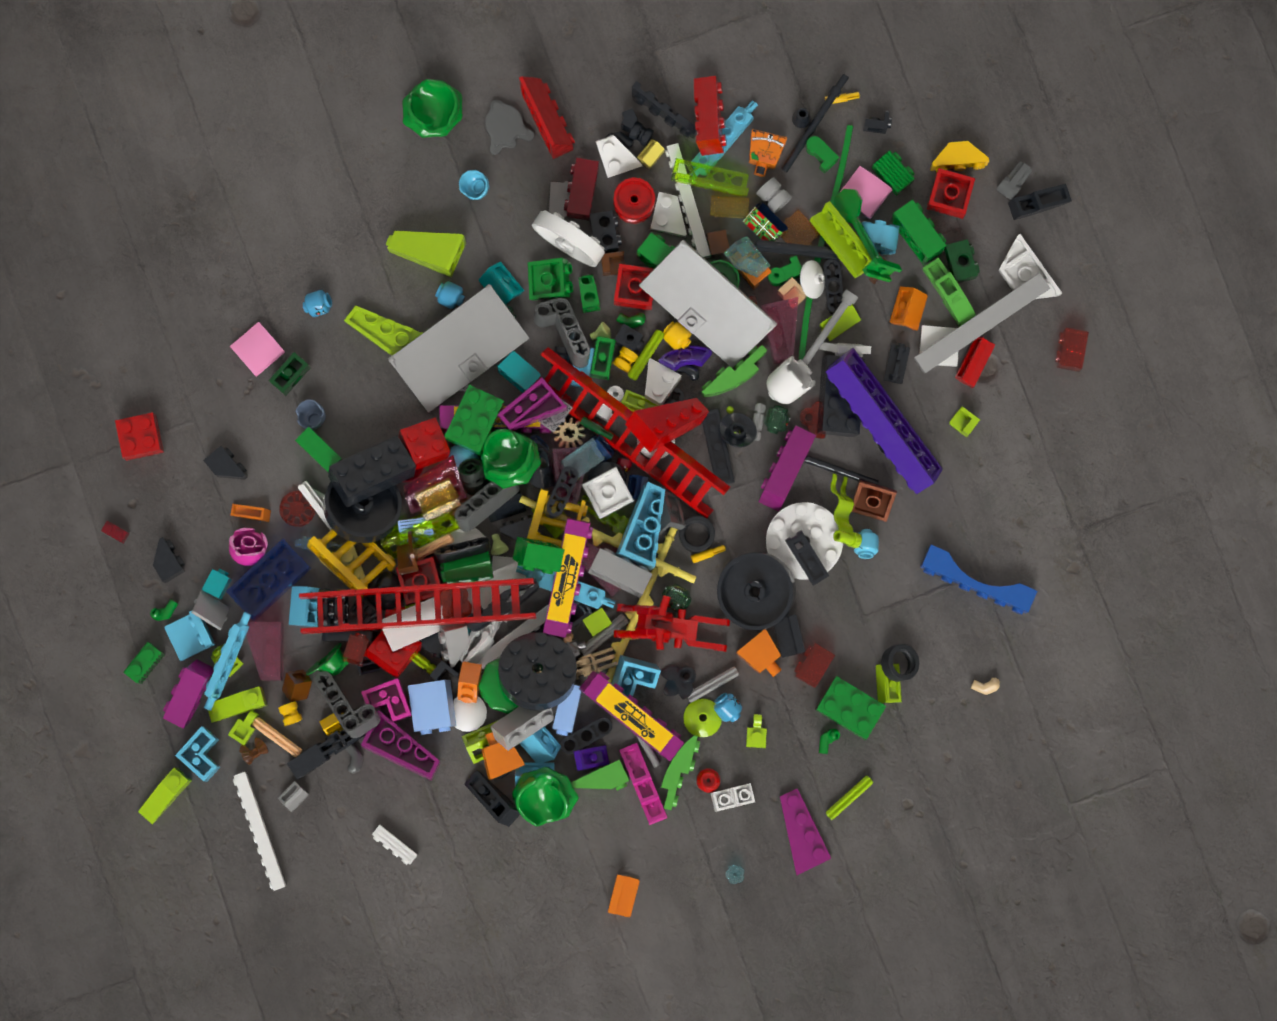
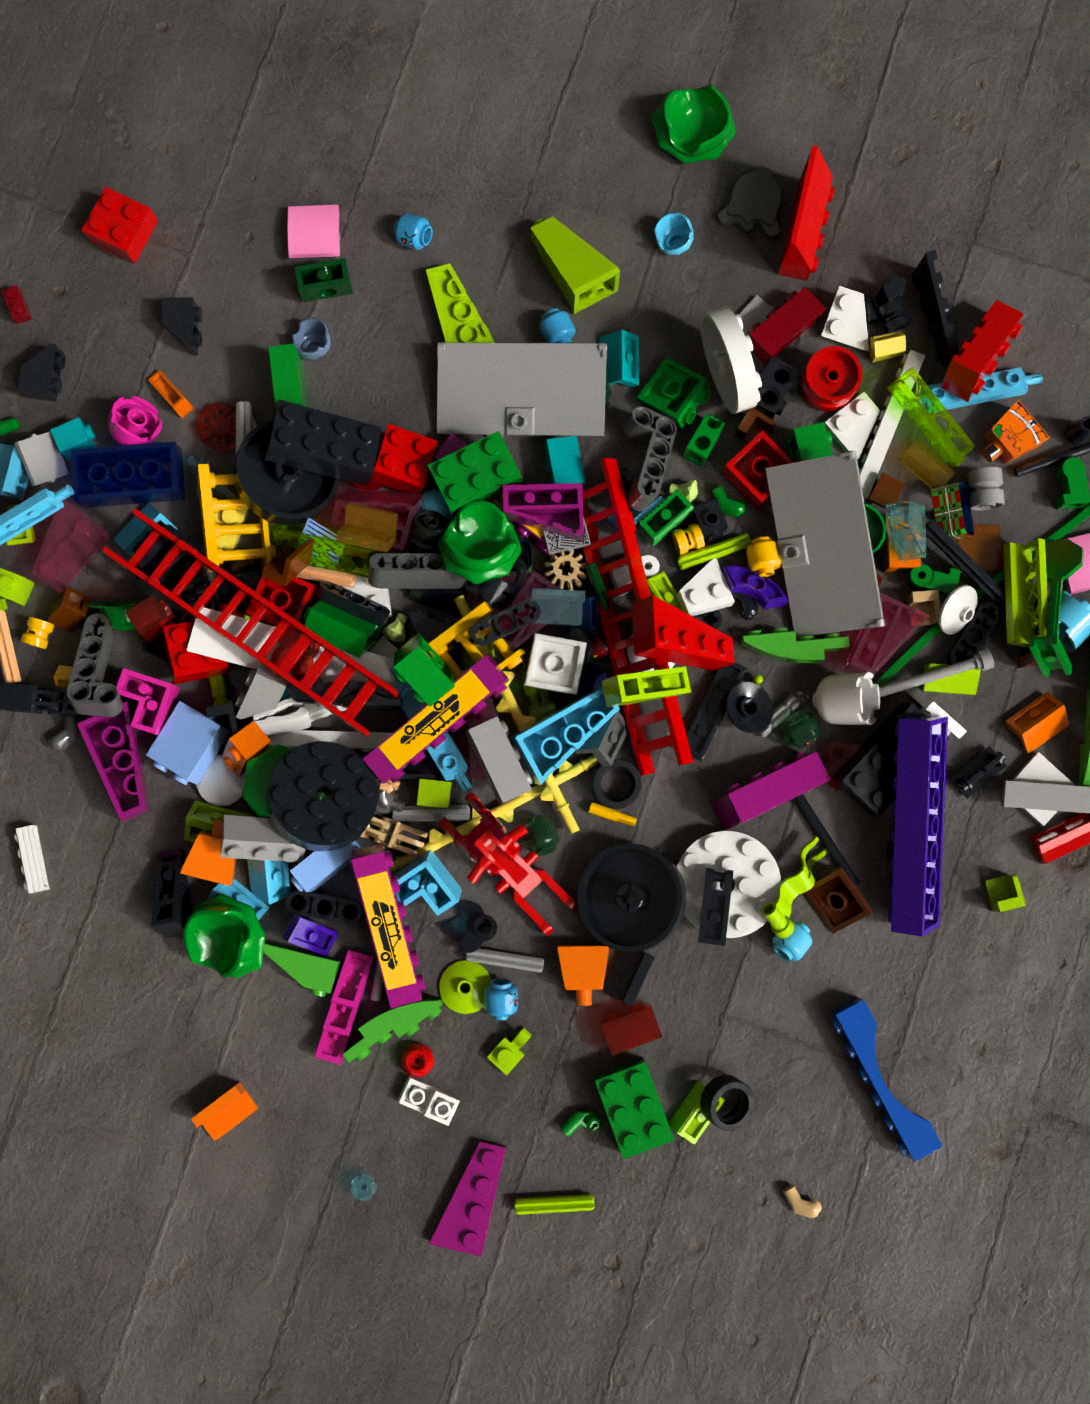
camera: 40 degrees right, 0 degrees up
(670, 465) = (645, 686): none -> lime slope

